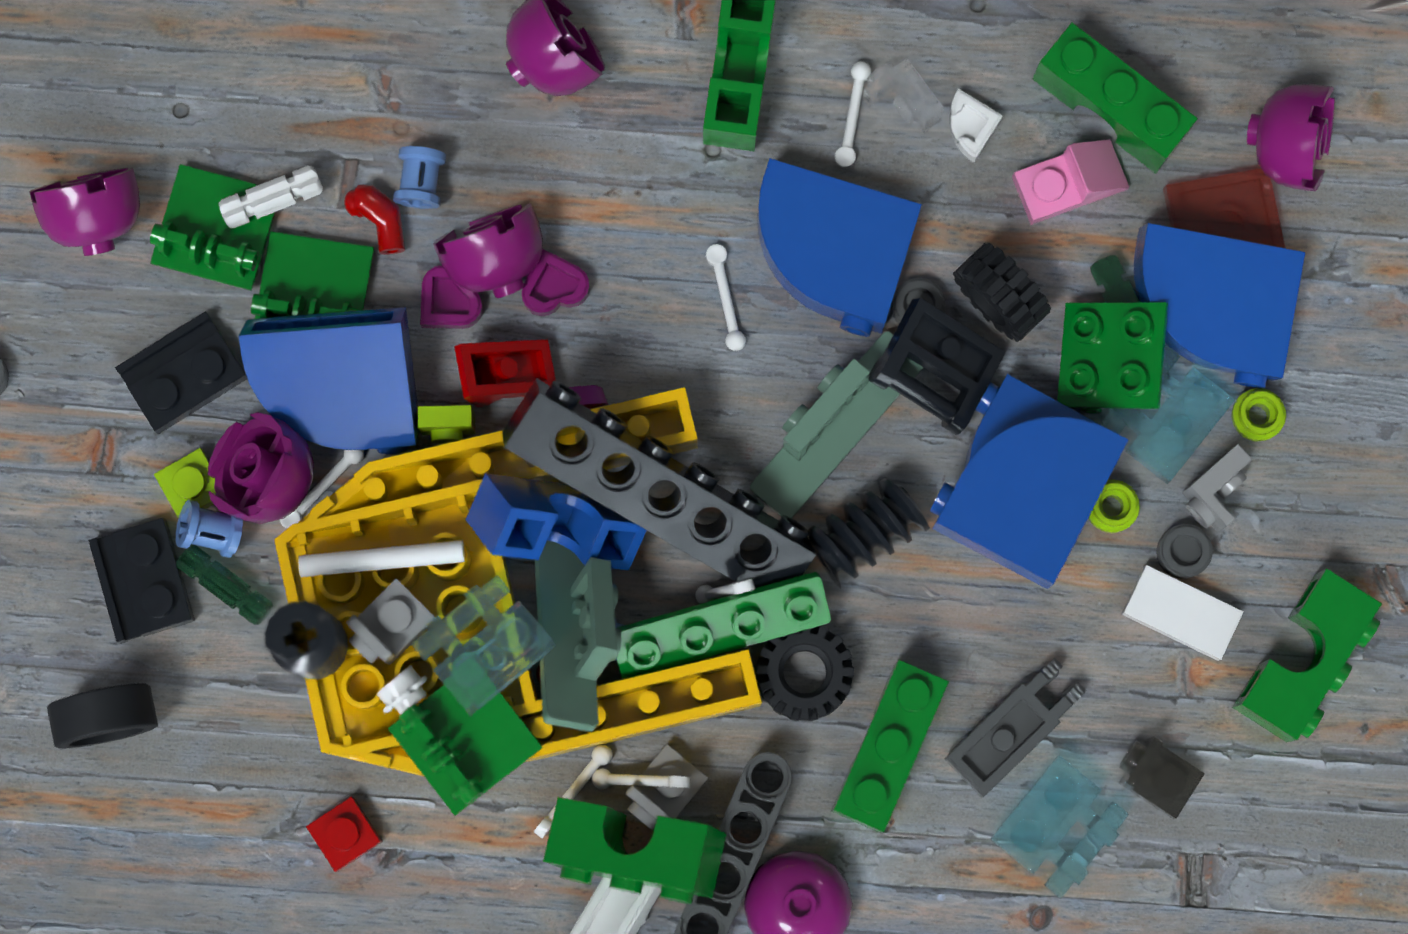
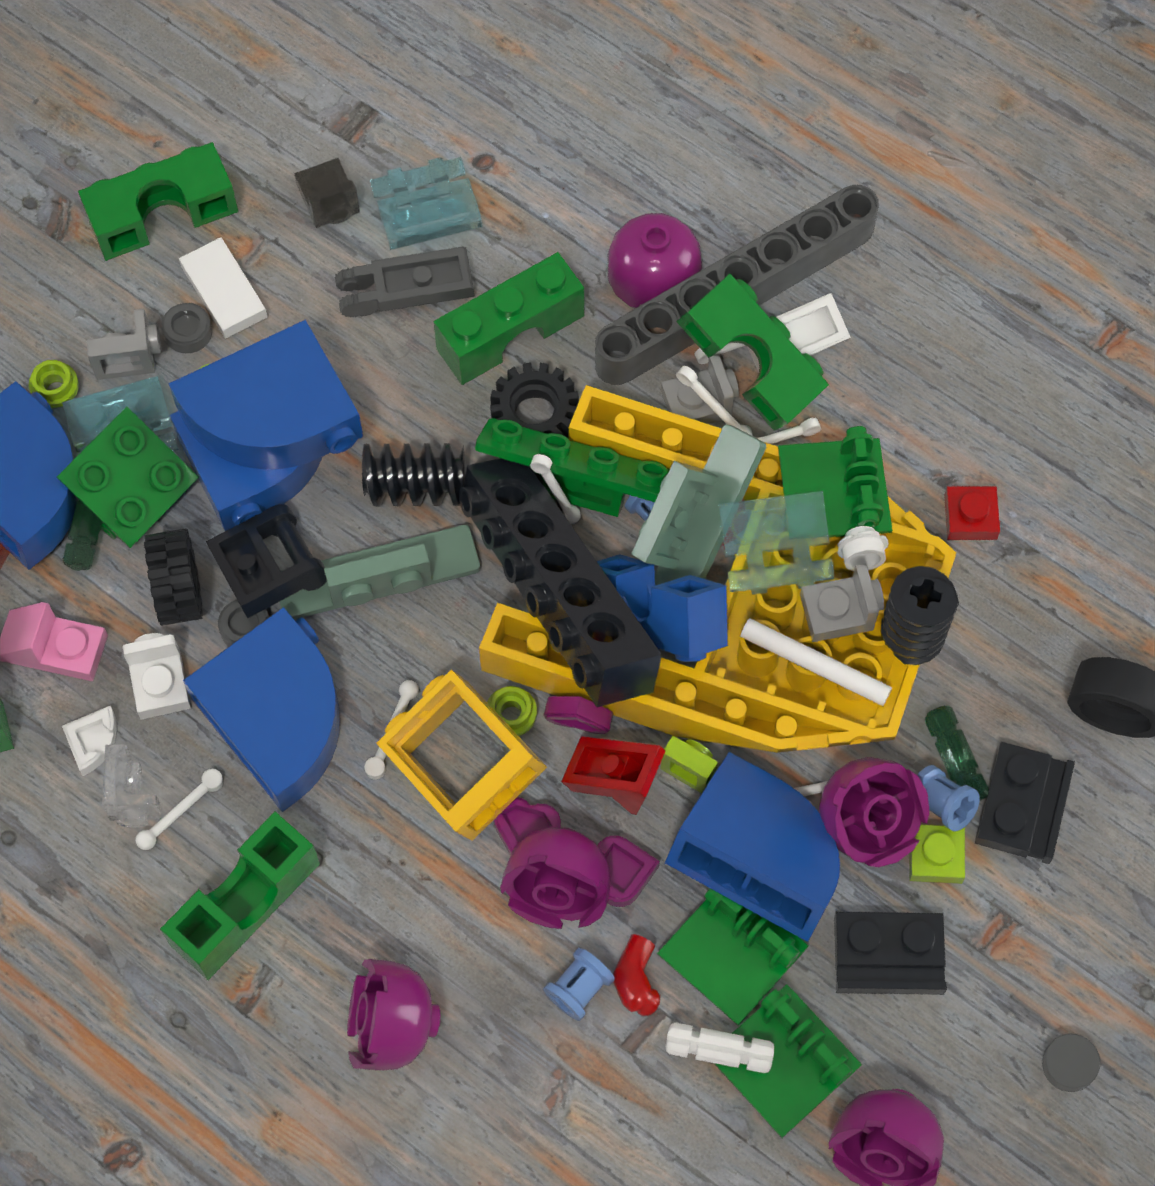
camera: 145 degrees left, 15 degrees down
(633, 359) = (519, 698): none -> lime plate
(653, 257) = (493, 790): none -> yellow window
(956, 209) = (156, 675): none -> white bracket

